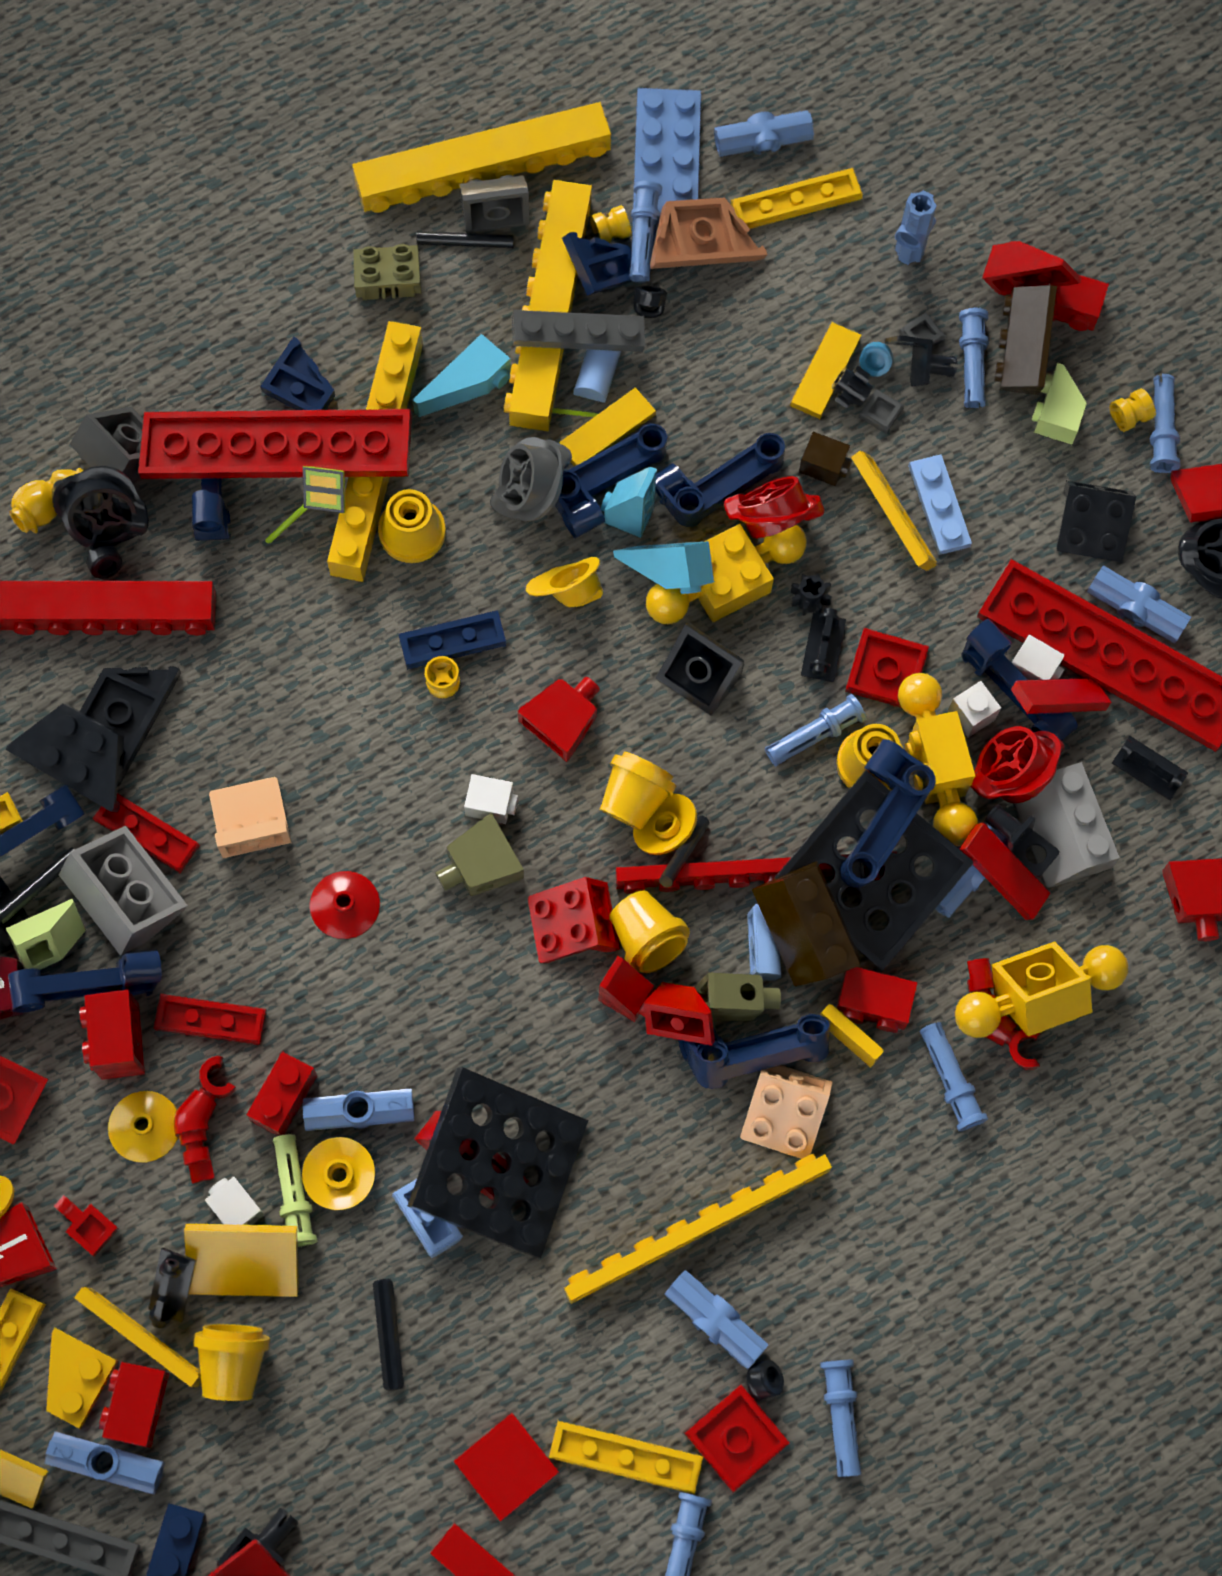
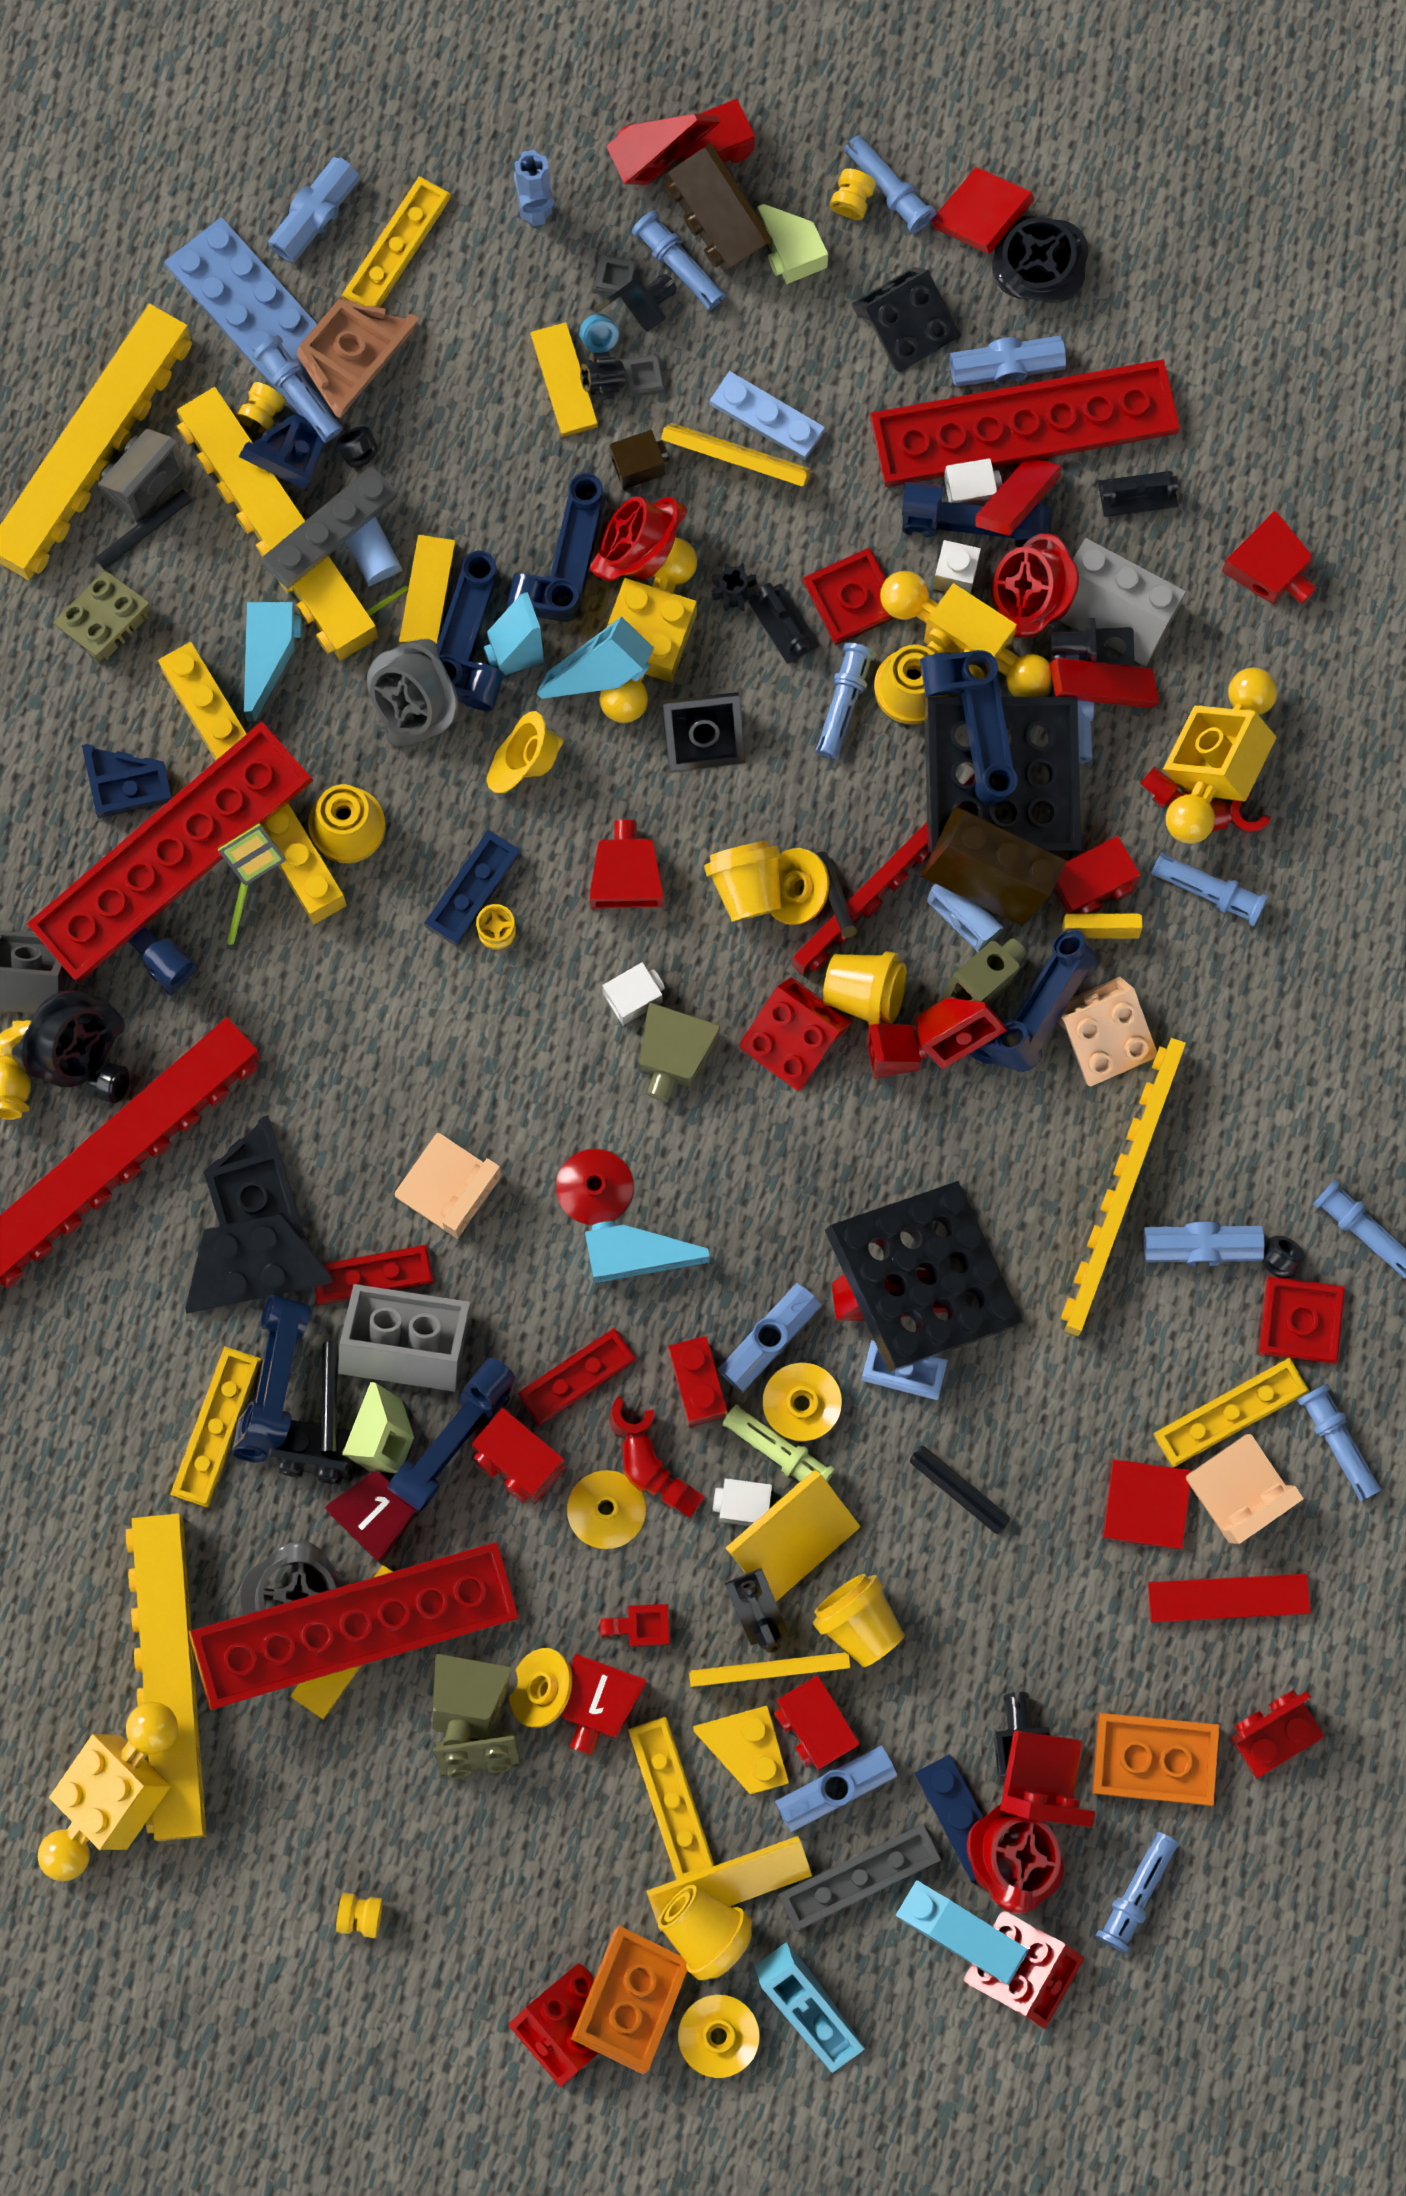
camera: 40 degrees left, 5 degrees up
(320, 966) = (631, 1252): none -> medium azure slope
(580, 1519) = (1242, 1490): none -> light nougat bracket

